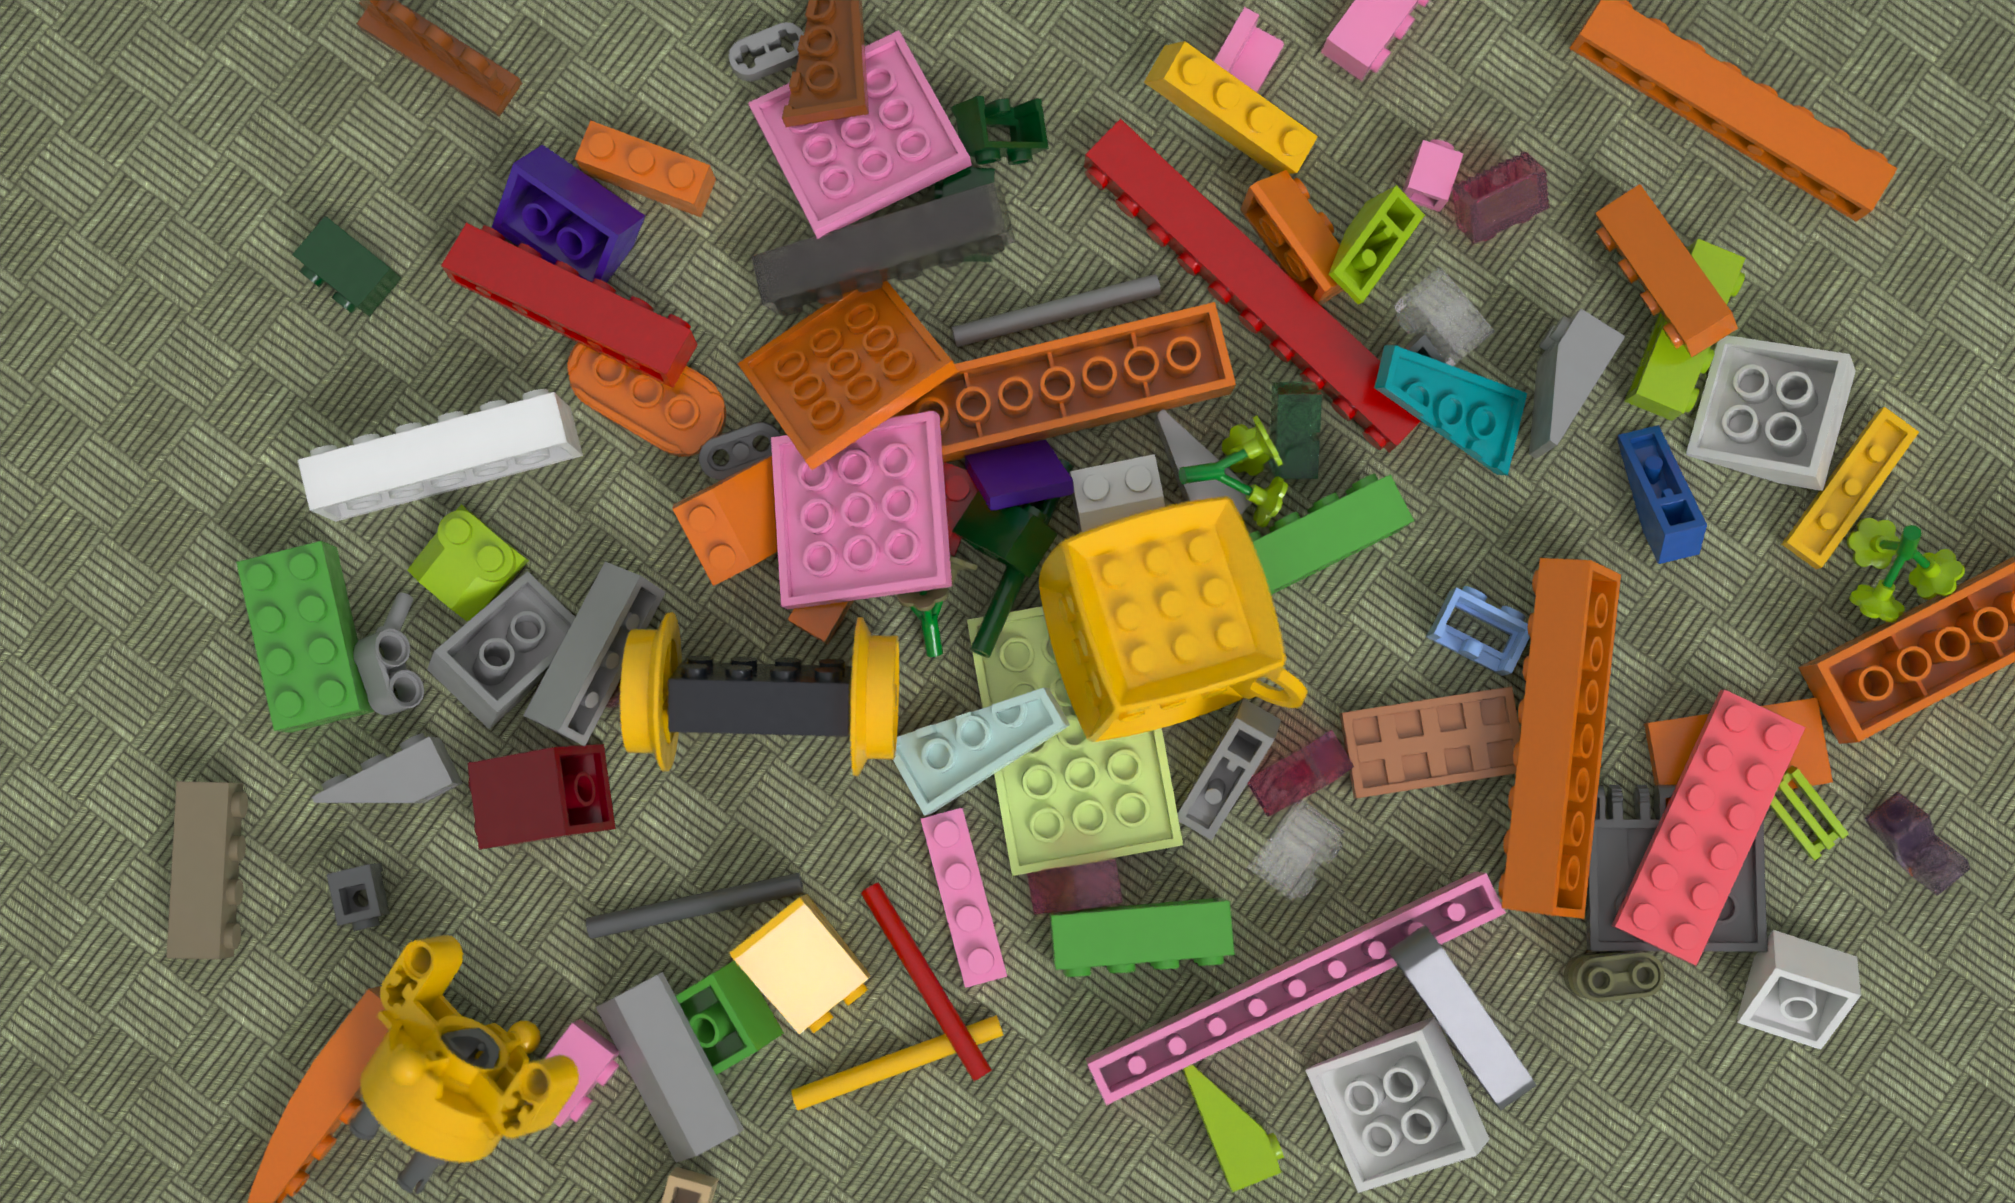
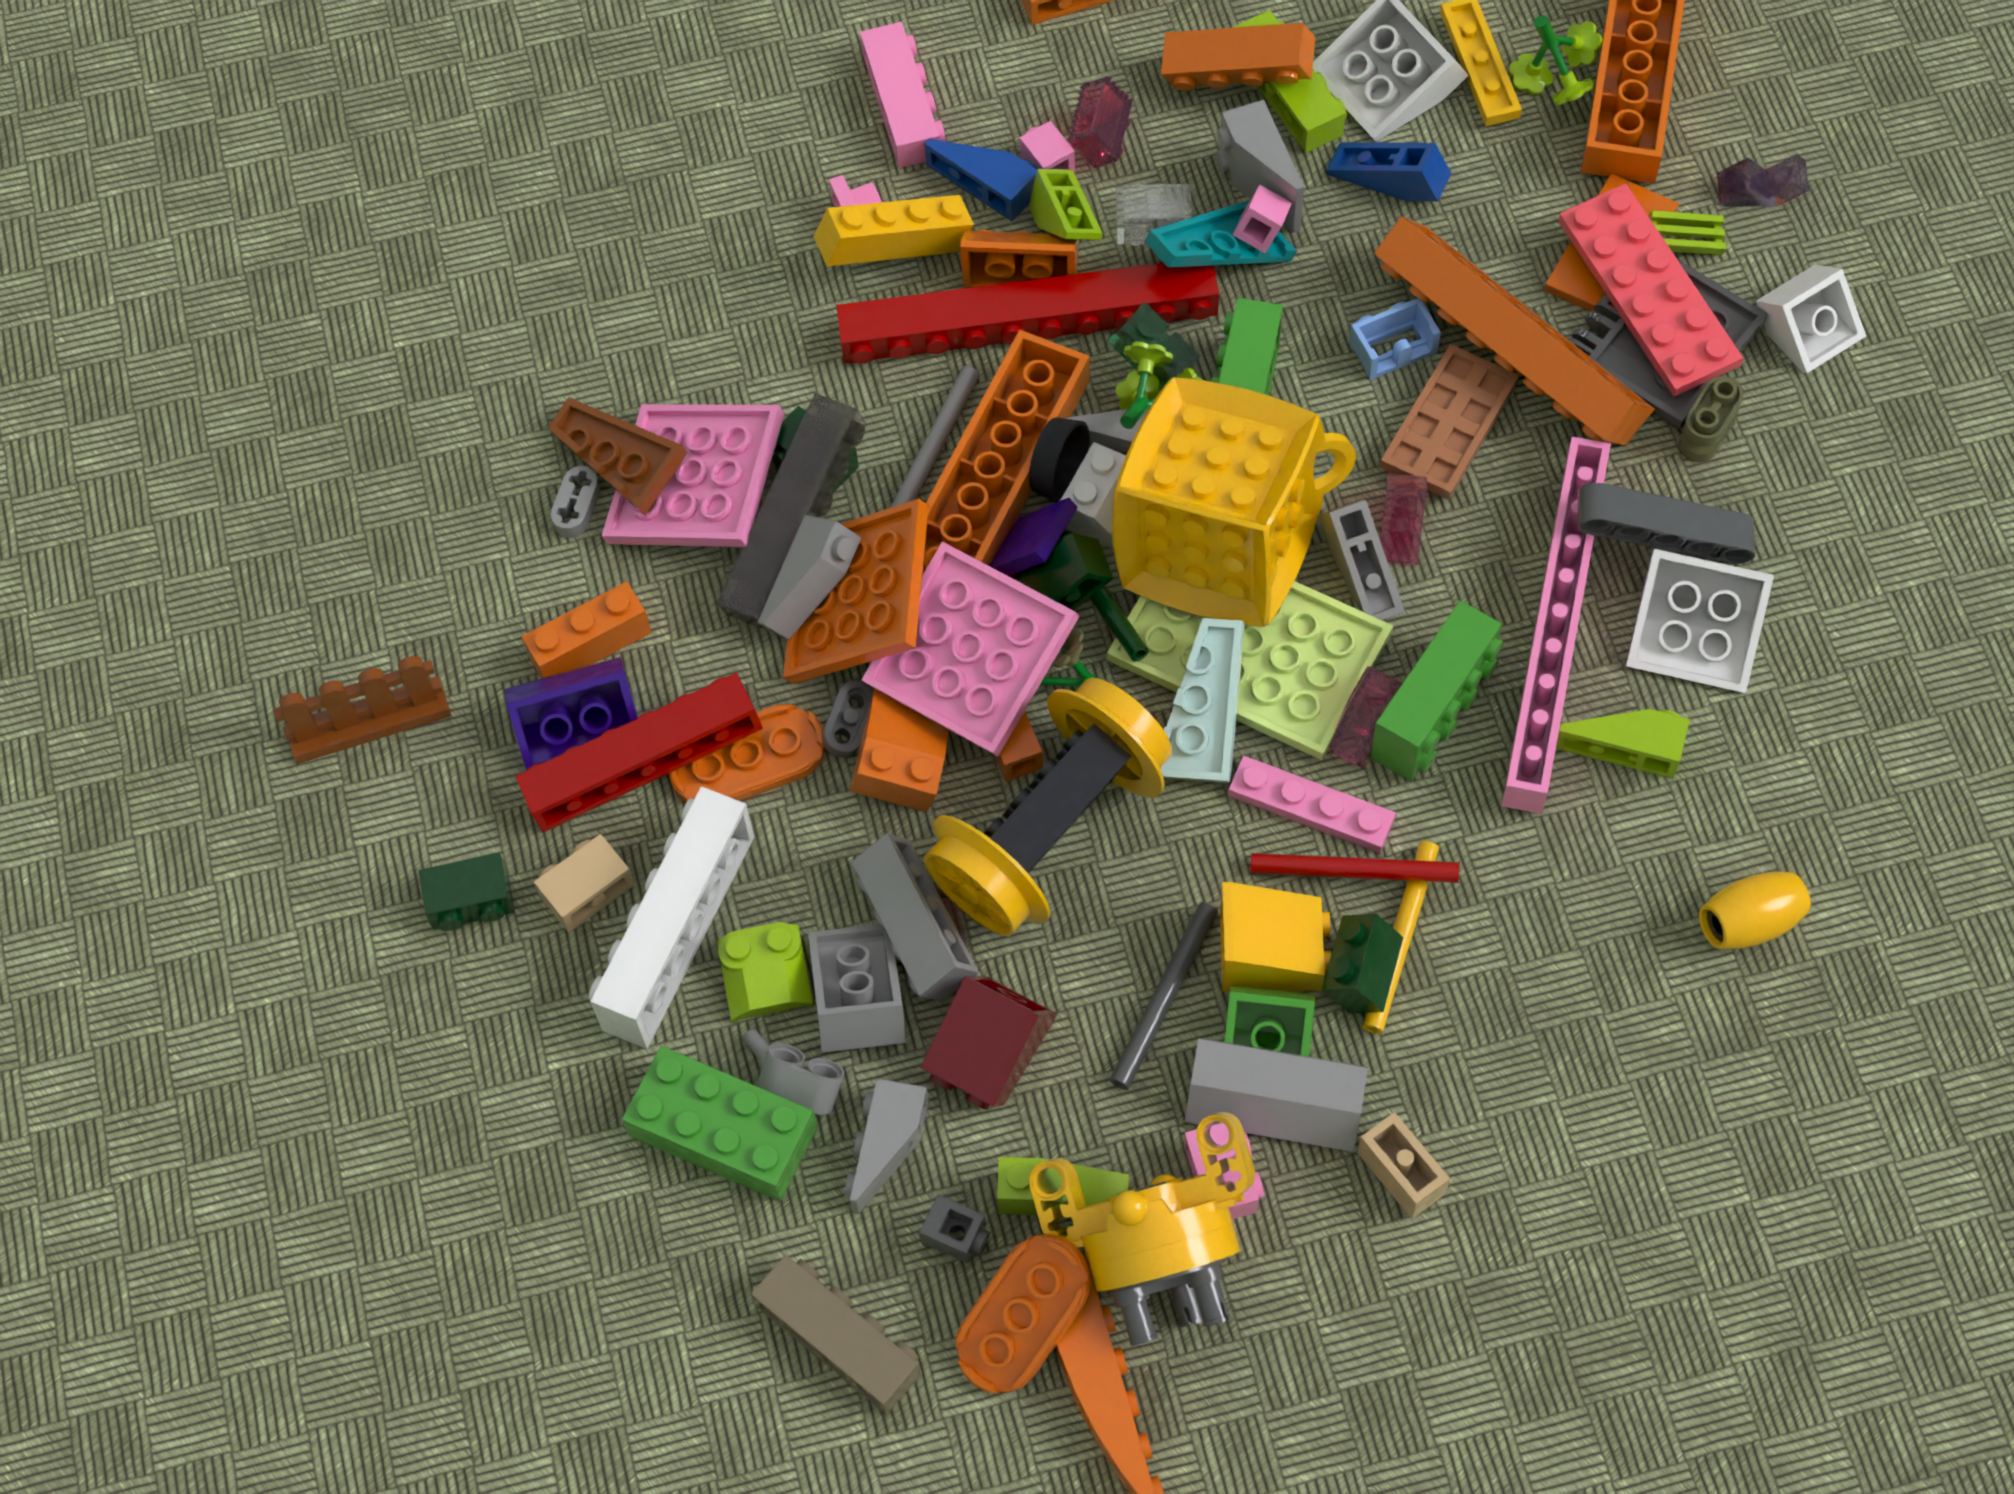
camera: 45 degrees left, 20 degrees down
(317, 1013) = (1023, 1313): none -> orange tile
(427, 354) = (583, 882): none -> tan brick
(480, 977) = (1015, 1193): none -> lime slope
(834, 313) = (809, 573): none -> light grey slope
(837, 1055) = (1362, 963): none -> dark green brick
(1024, 123) = (774, 382): dark green window -> none
(1116, 435) = (1058, 456): none -> black tyre
(1296, 851) = (1457, 557): clear brick -> none
(1369, 141) = (987, 174): none -> blue slope
(1504, 426) = (1262, 218): none -> bright pink brick

